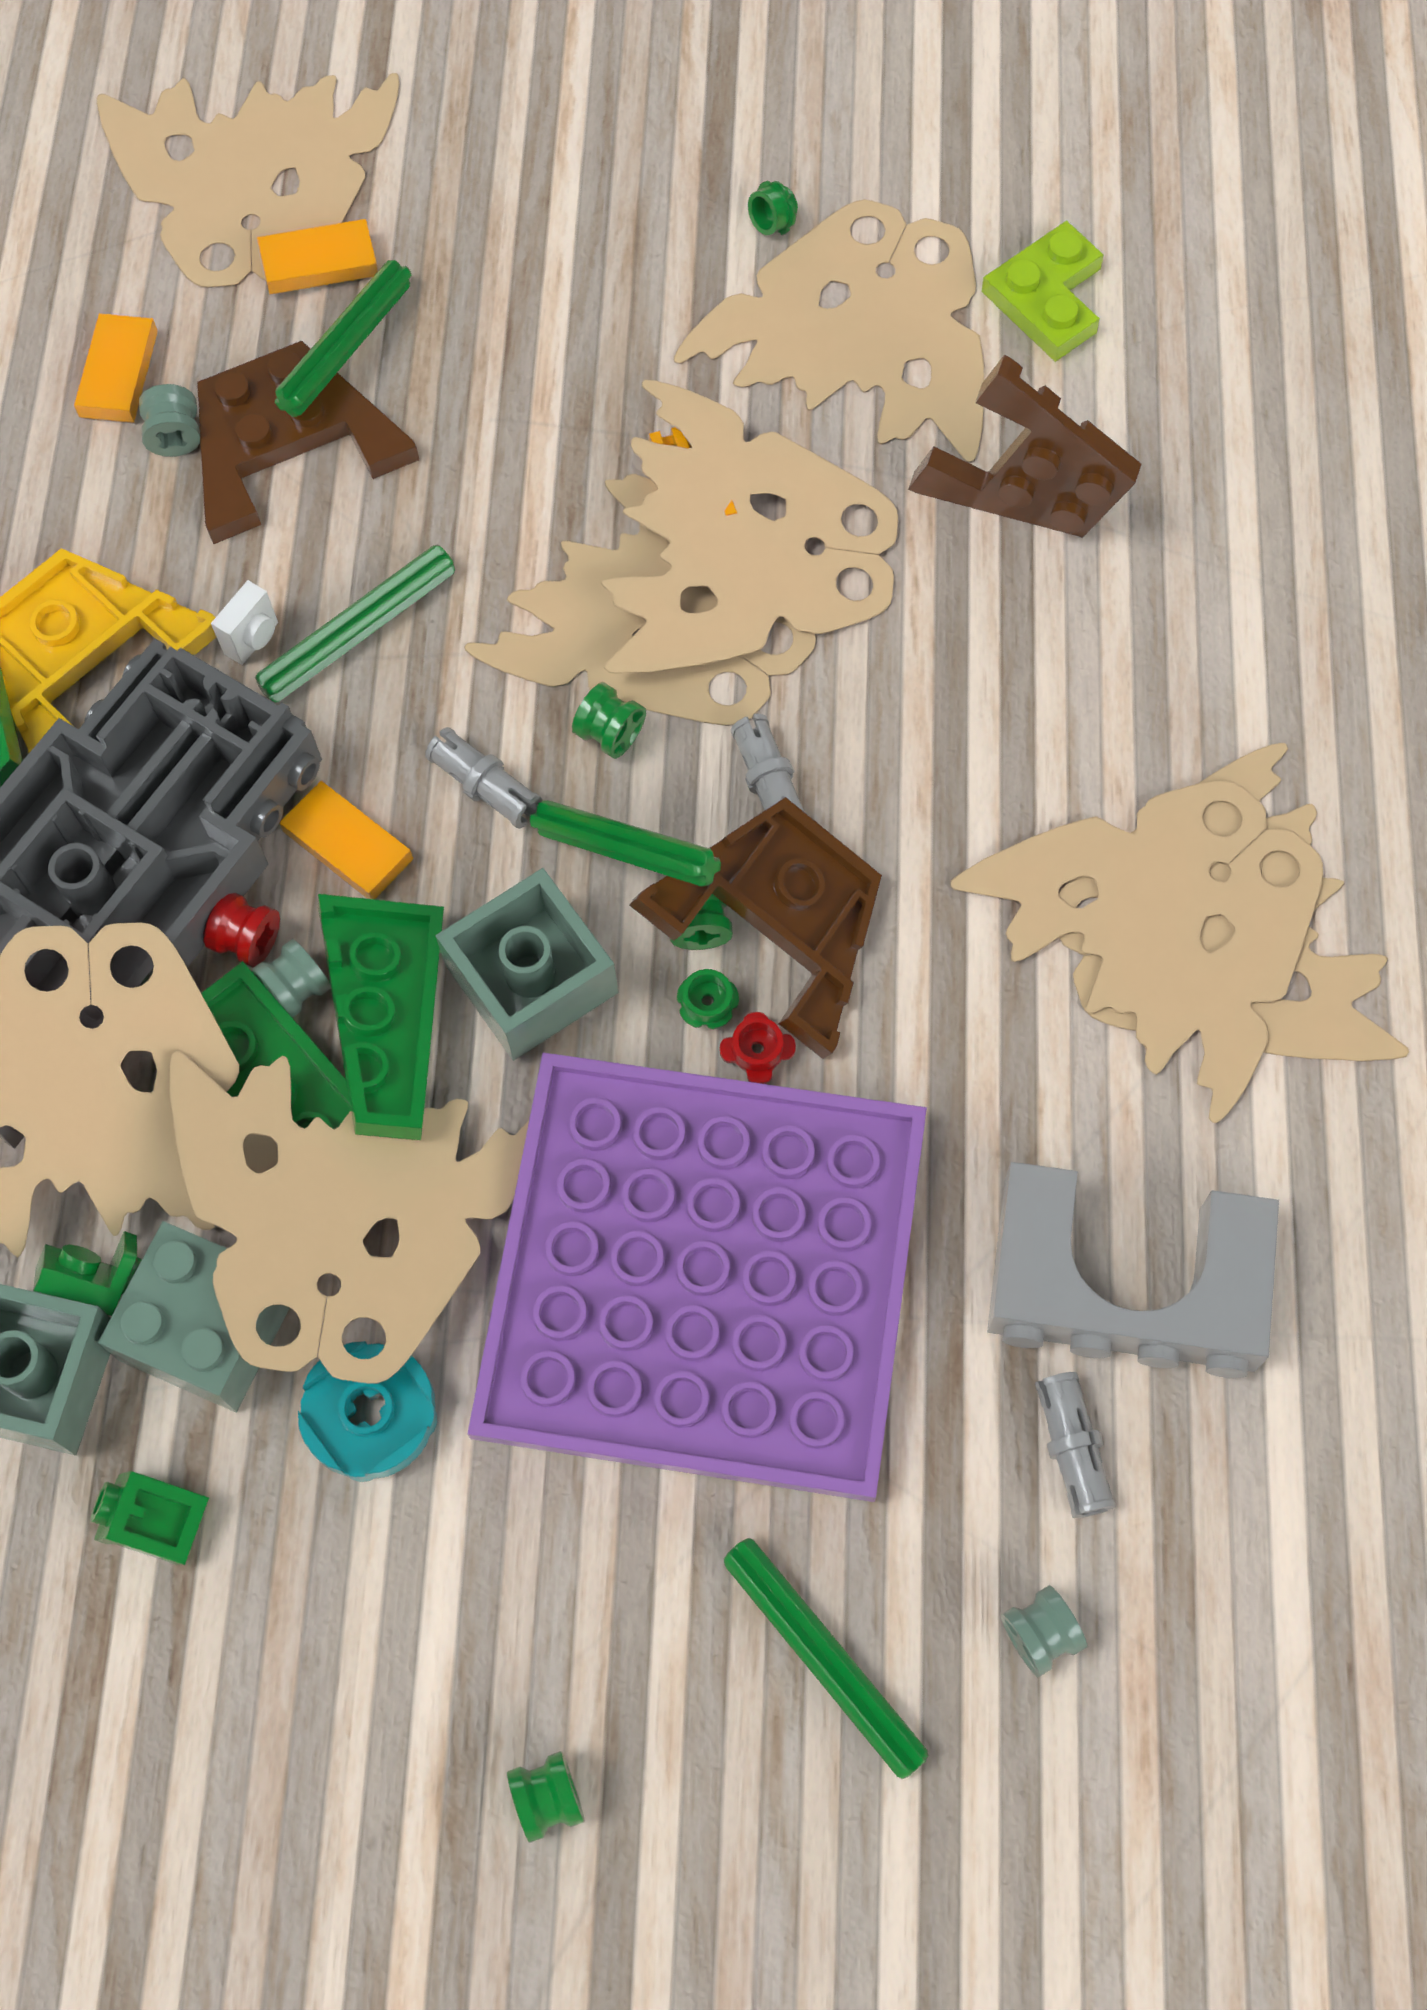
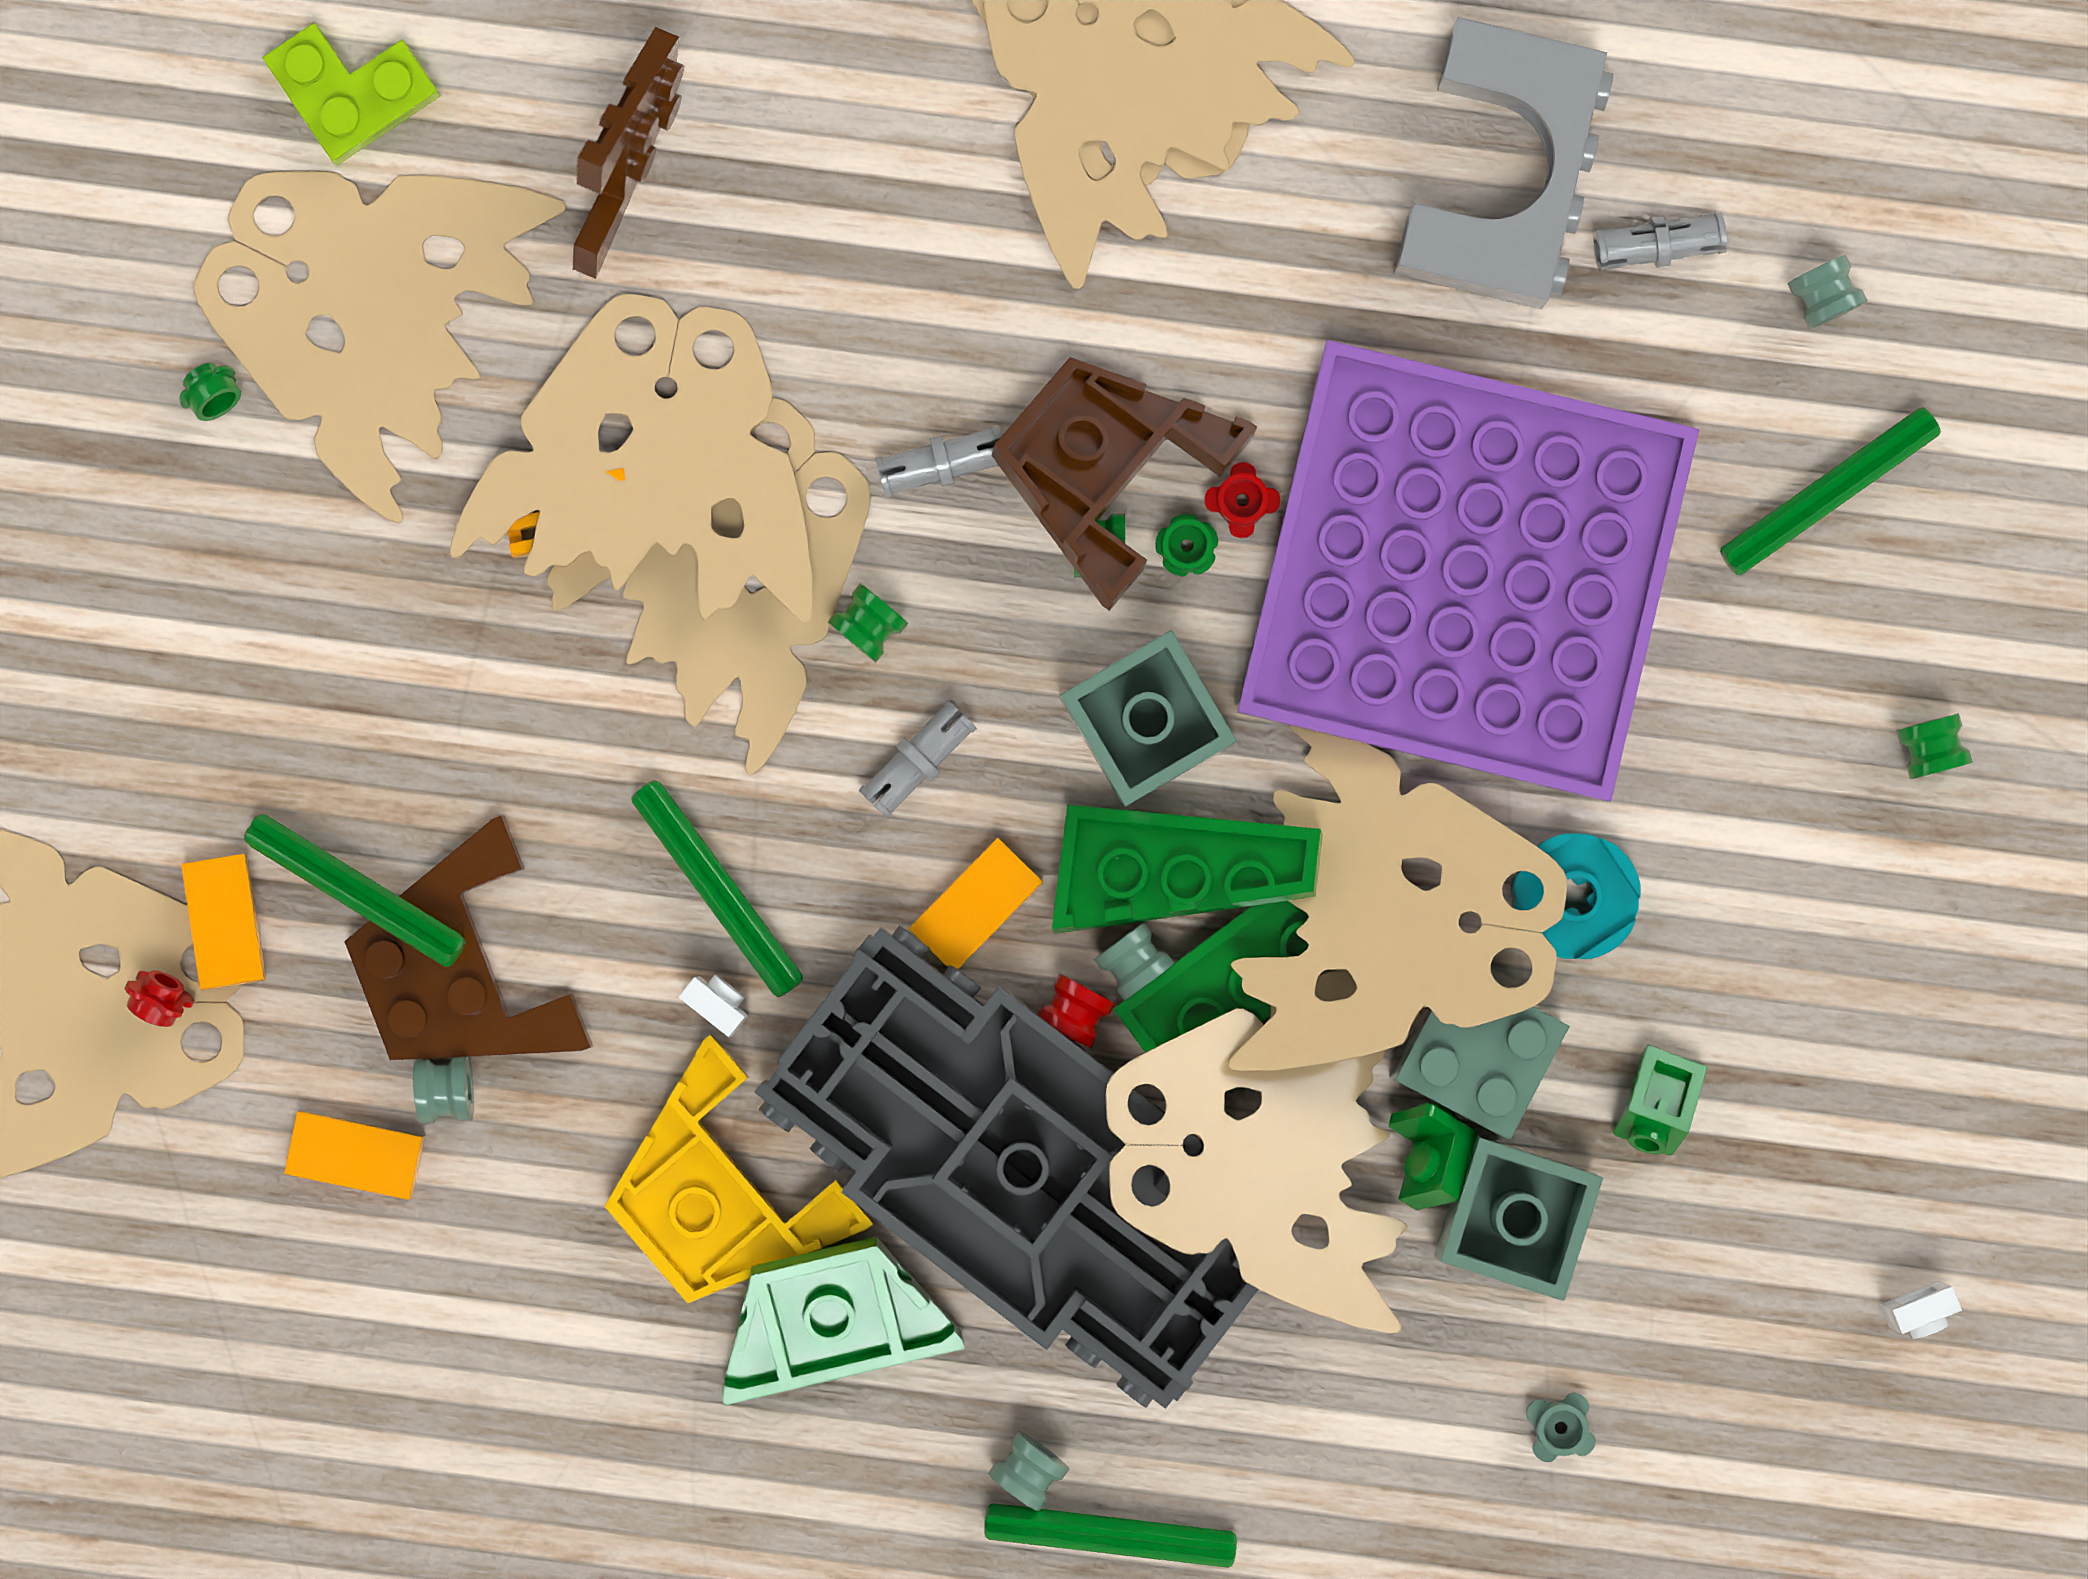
camera: 85 degrees left, 20 degrees up
(249, 208) = (157, 998): none -> red plate
(626, 843) = (1033, 612): green axle -> none

